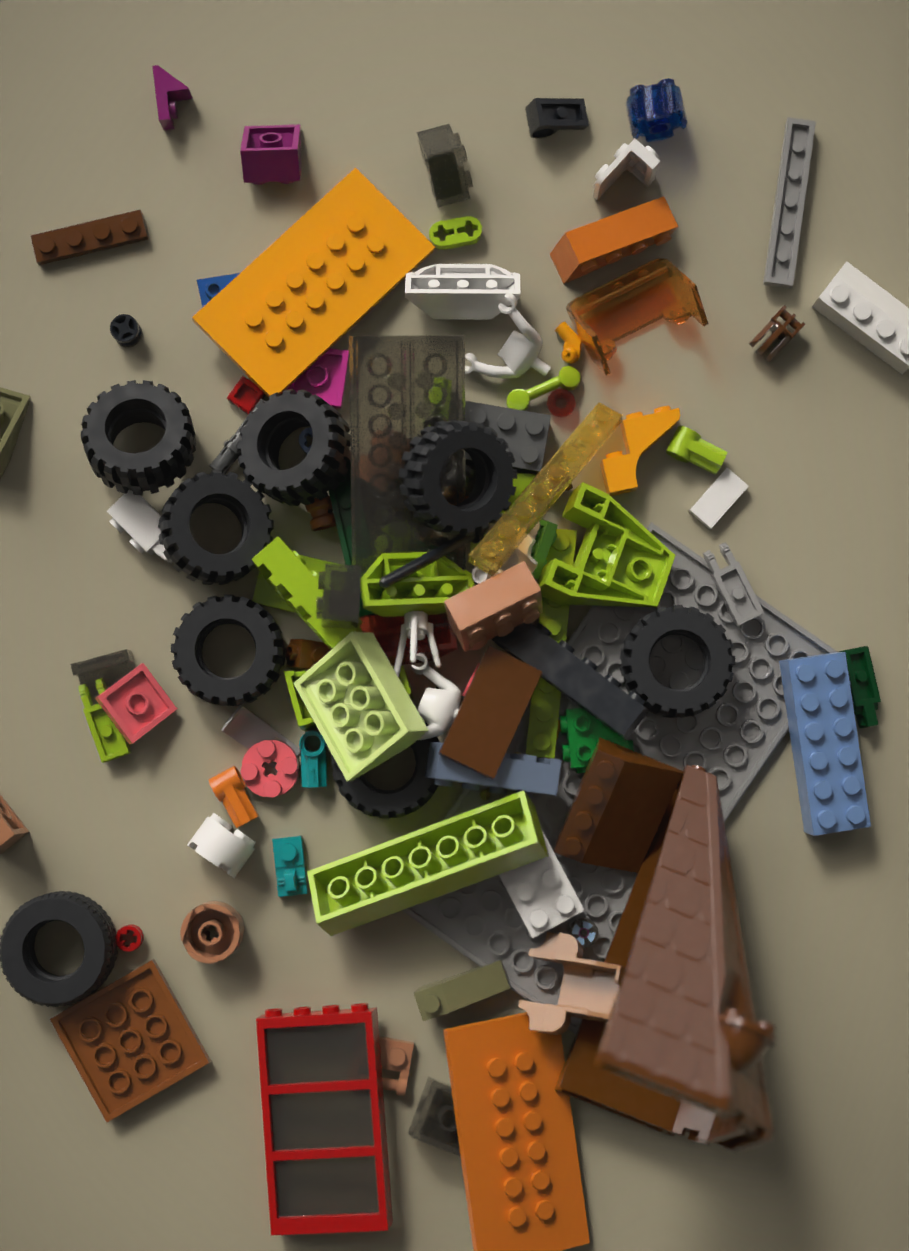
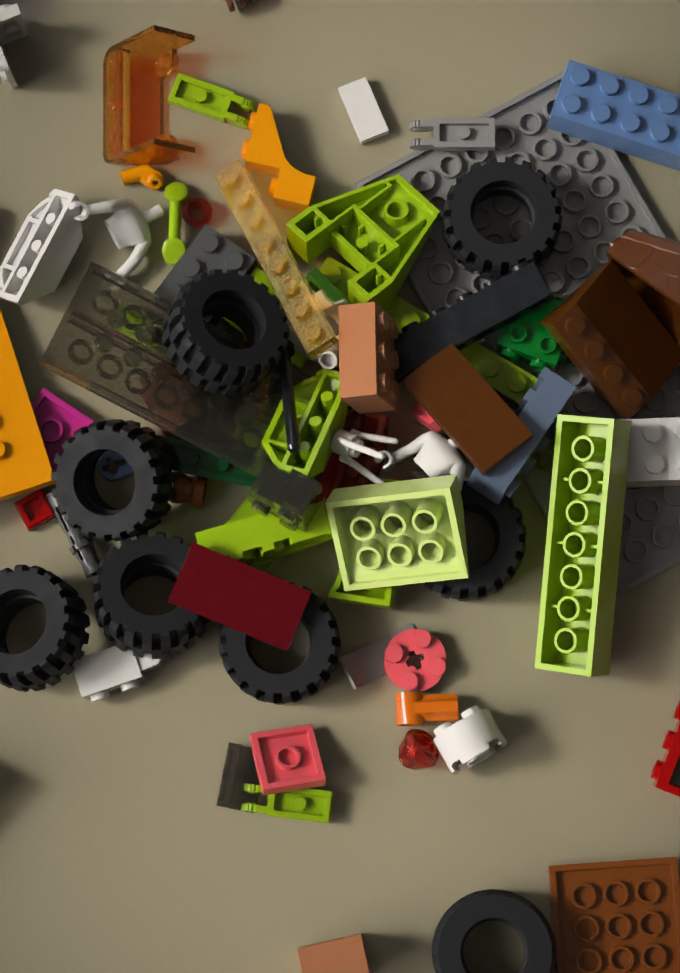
camera: 60 degrees left, 5 degrees down
(134, 945) = (525, 878): red bush -> none
(195, 807) = (418, 750): none -> clear red cone
(197, 938) = (568, 790): nougat brick -> none
(241, 599) = (239, 596): none -> dark red tile
(290, 866) = (520, 687): teal hinge -> none
(304, 653) = (320, 570): reddish brown bracket -> none
(313, 762) = (430, 613): teal piece -> none
(613, 239) = (65, 87): orange wedge -> none
(662, 364) = (209, 100): none -> lime hinge
(689, 447) = (300, 113): lime piece -> none
(863, 686) = (609, 61): dark green hinge -> none

